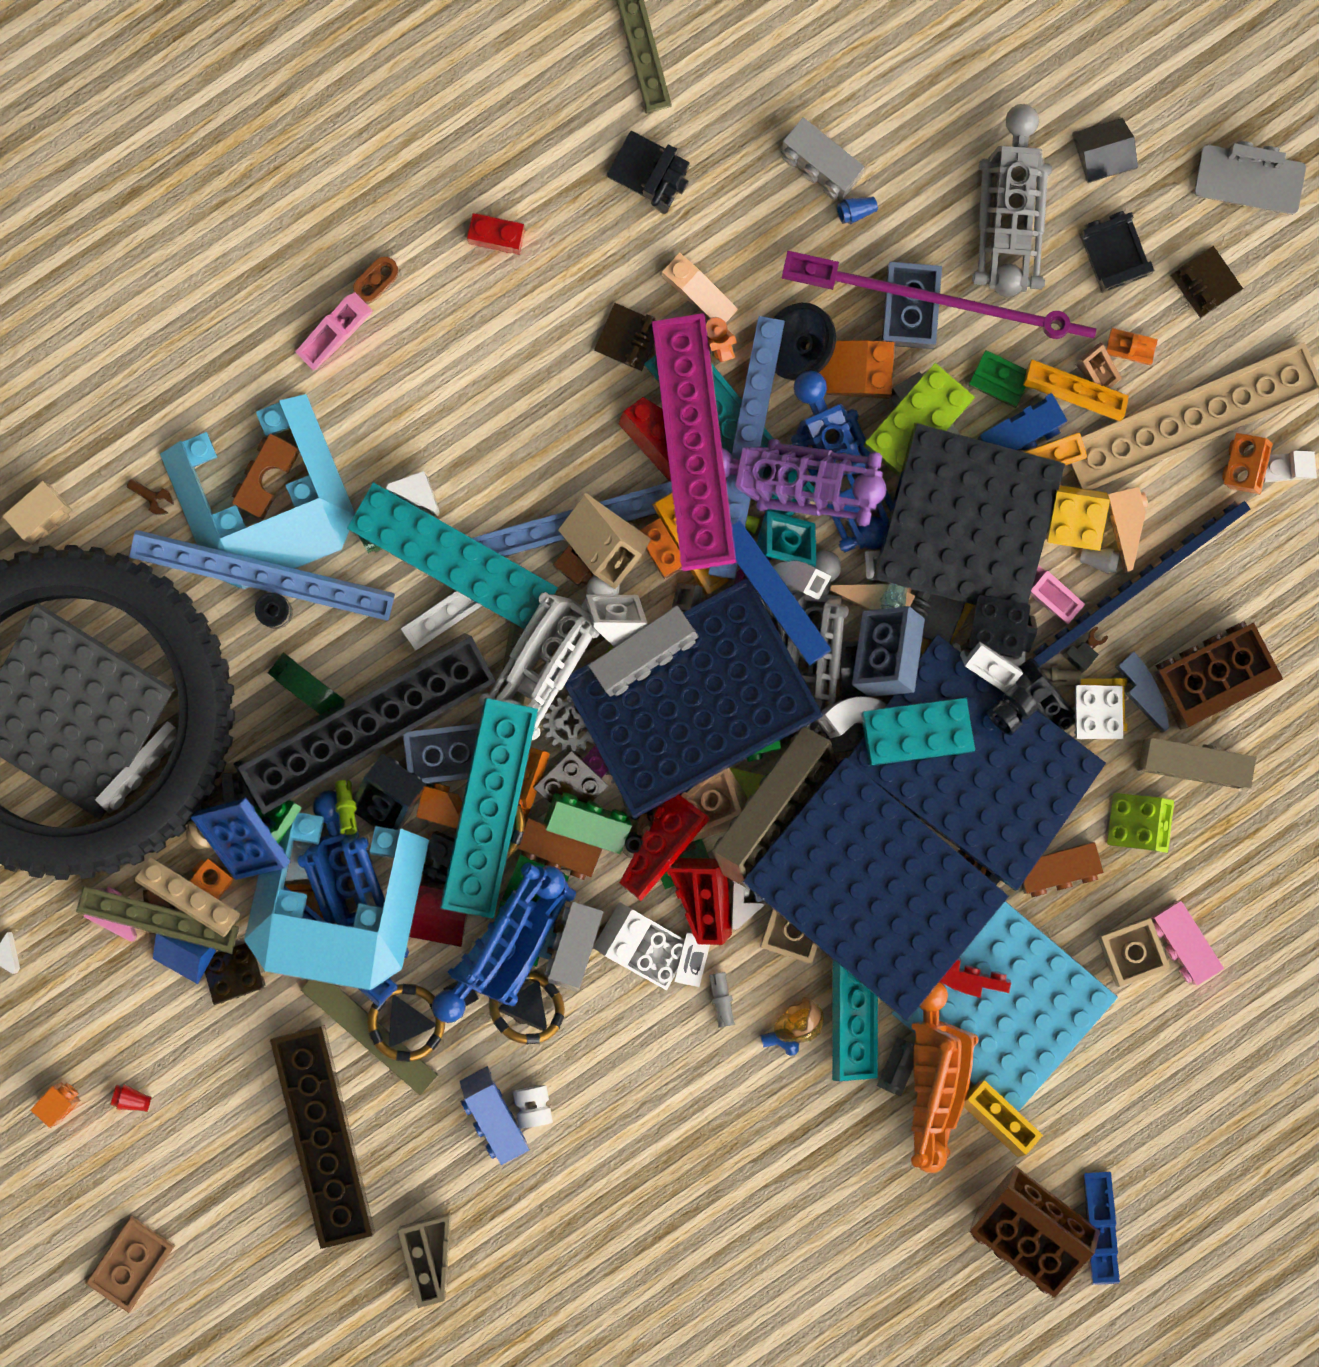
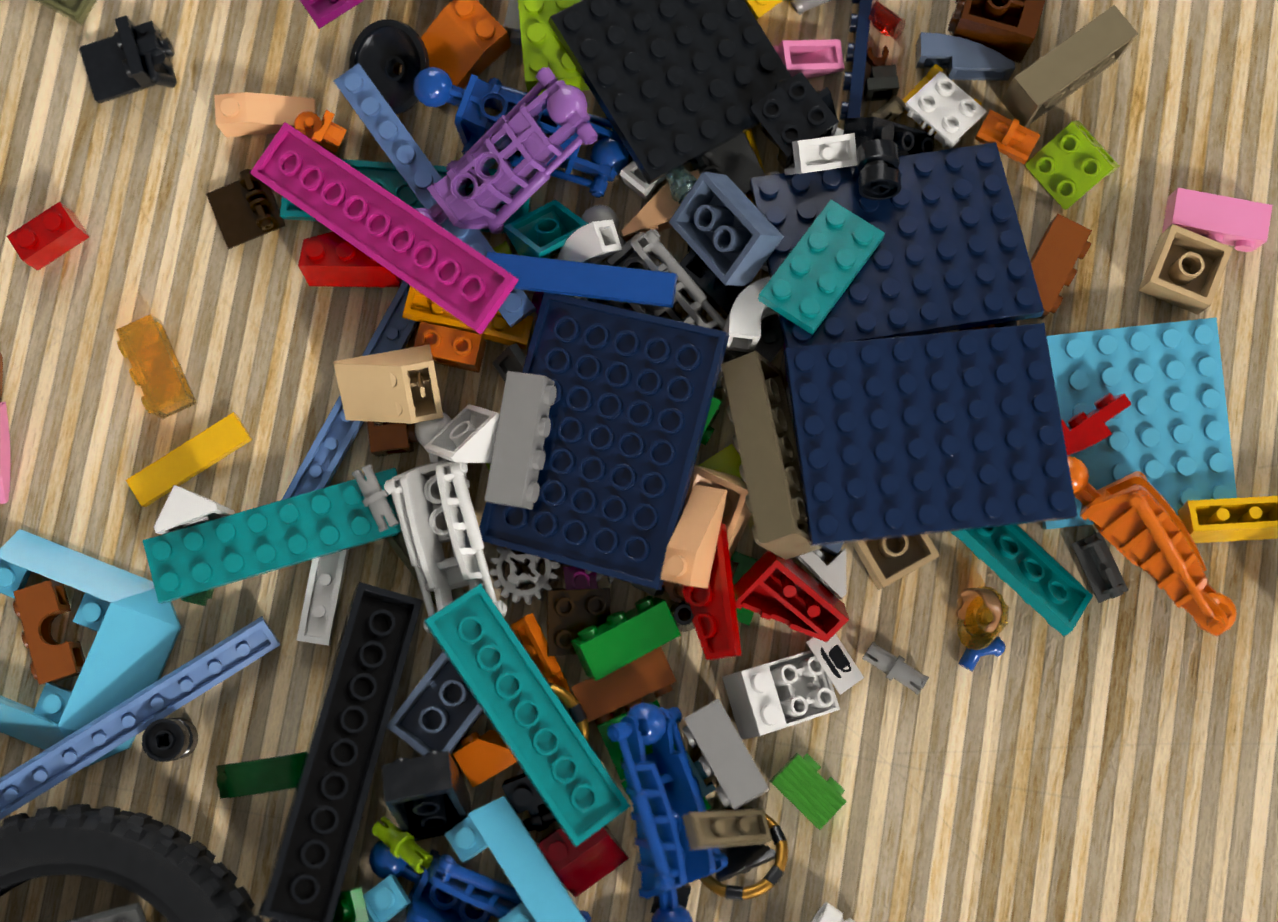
camera: 35 degrees left, 5 degrees down
(444, 455) = (189, 459): none -> yellow tile
(479, 380) = (155, 367): none -> clear yellow brick
(528, 596) = (375, 498): none -> light grey pin
(534, 986) = (726, 828): none -> dark tan tile
(600, 1014) = (809, 790): none -> bright green brick
(684, 809) = (695, 538): none -> light nougat slope
(1118, 766) = (1009, 136): none -> orange hips
(1121, 622) = (886, 20): none -> clear red slope

